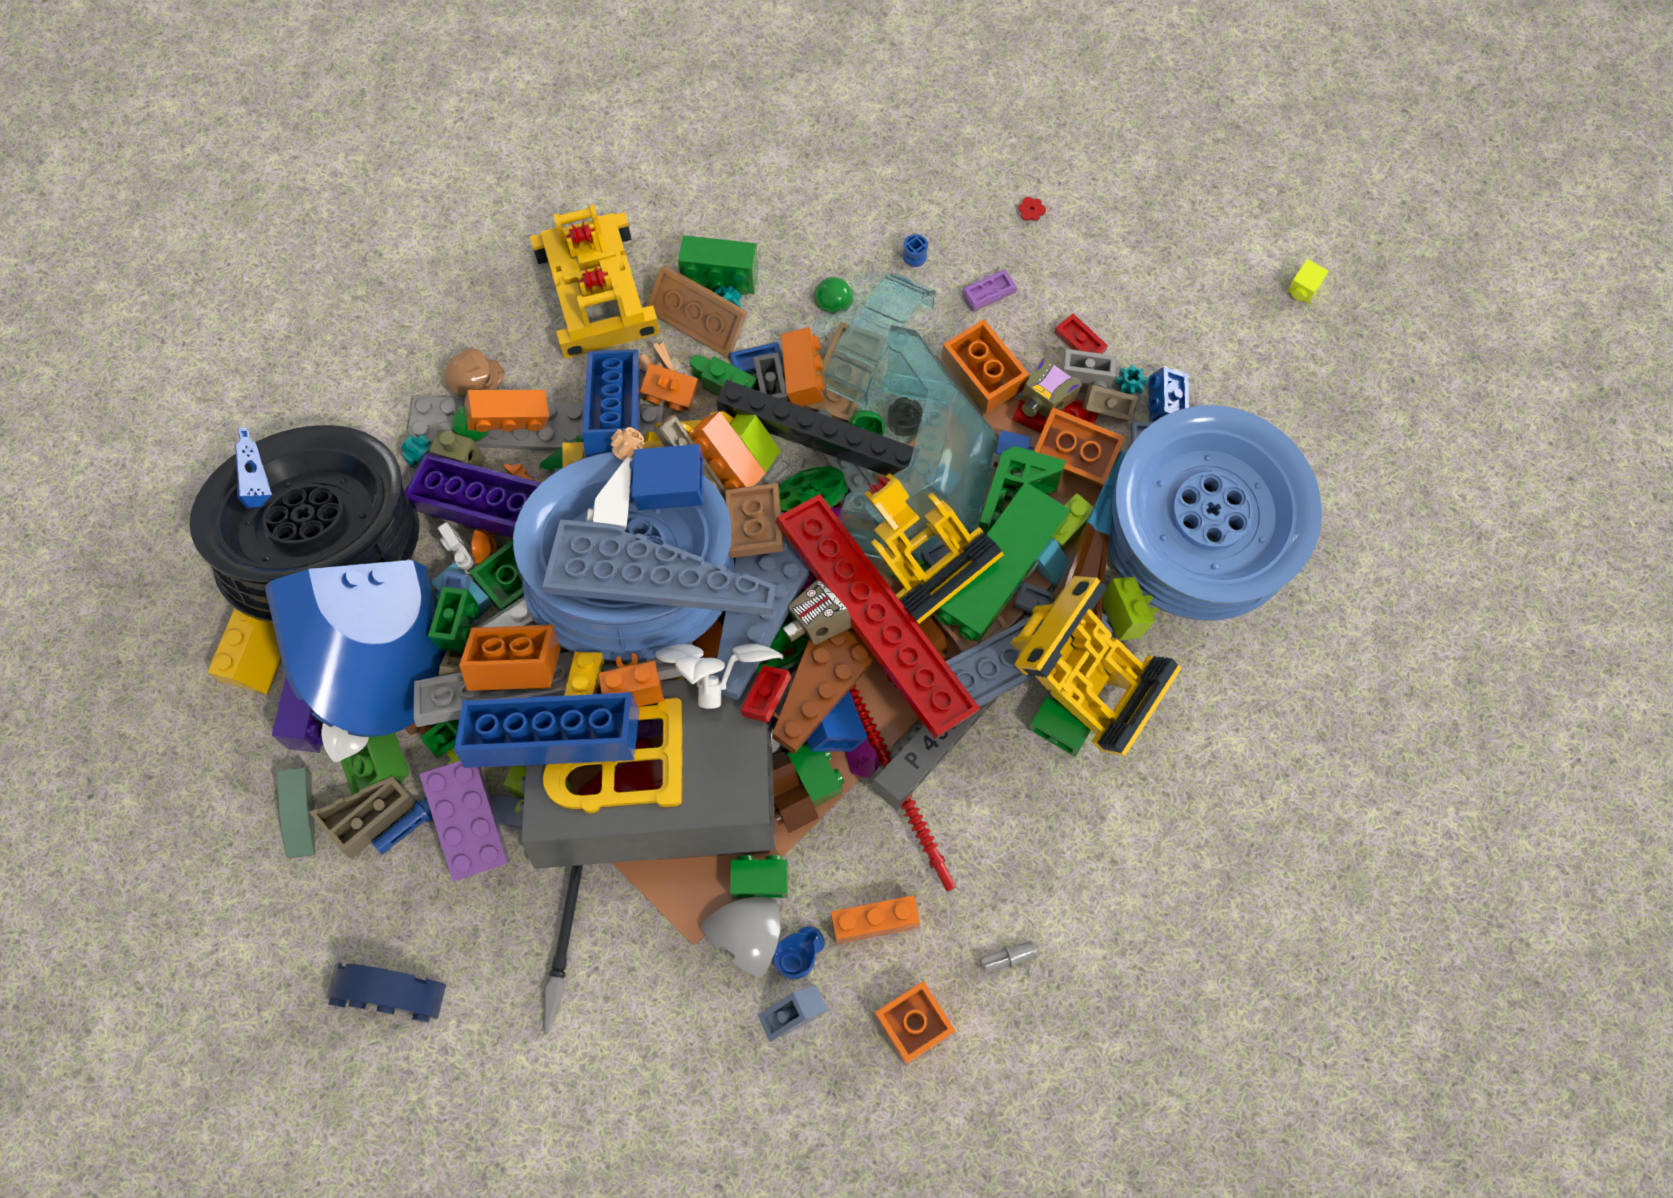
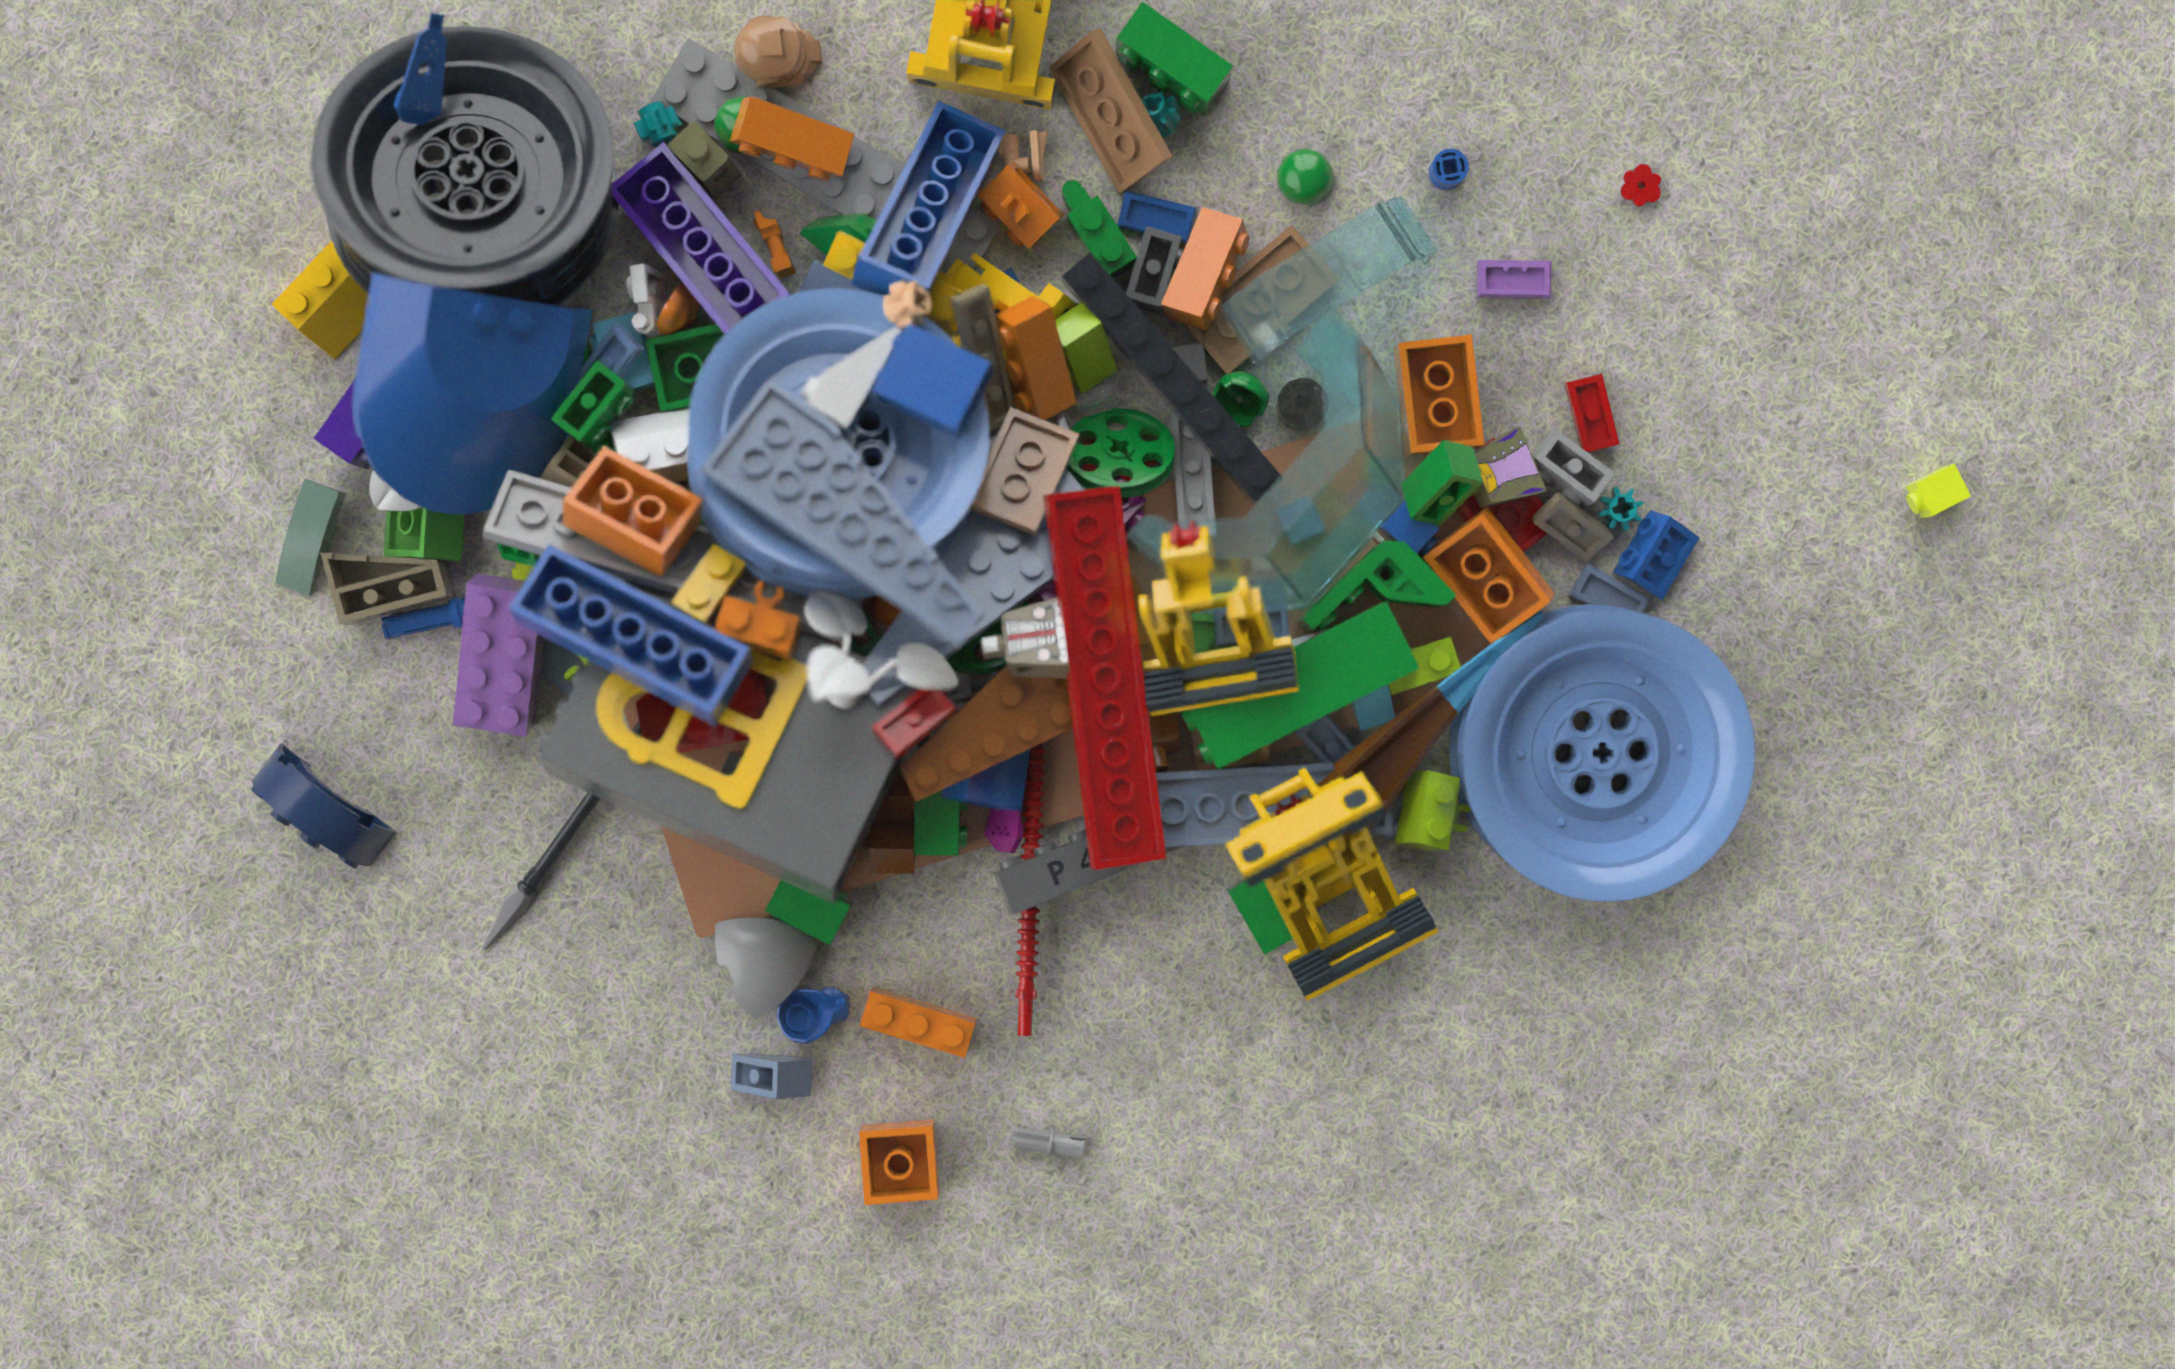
camera: 25 degrees right, 20 degrees up
(1017, 406) = (1441, 482): none -> green brick

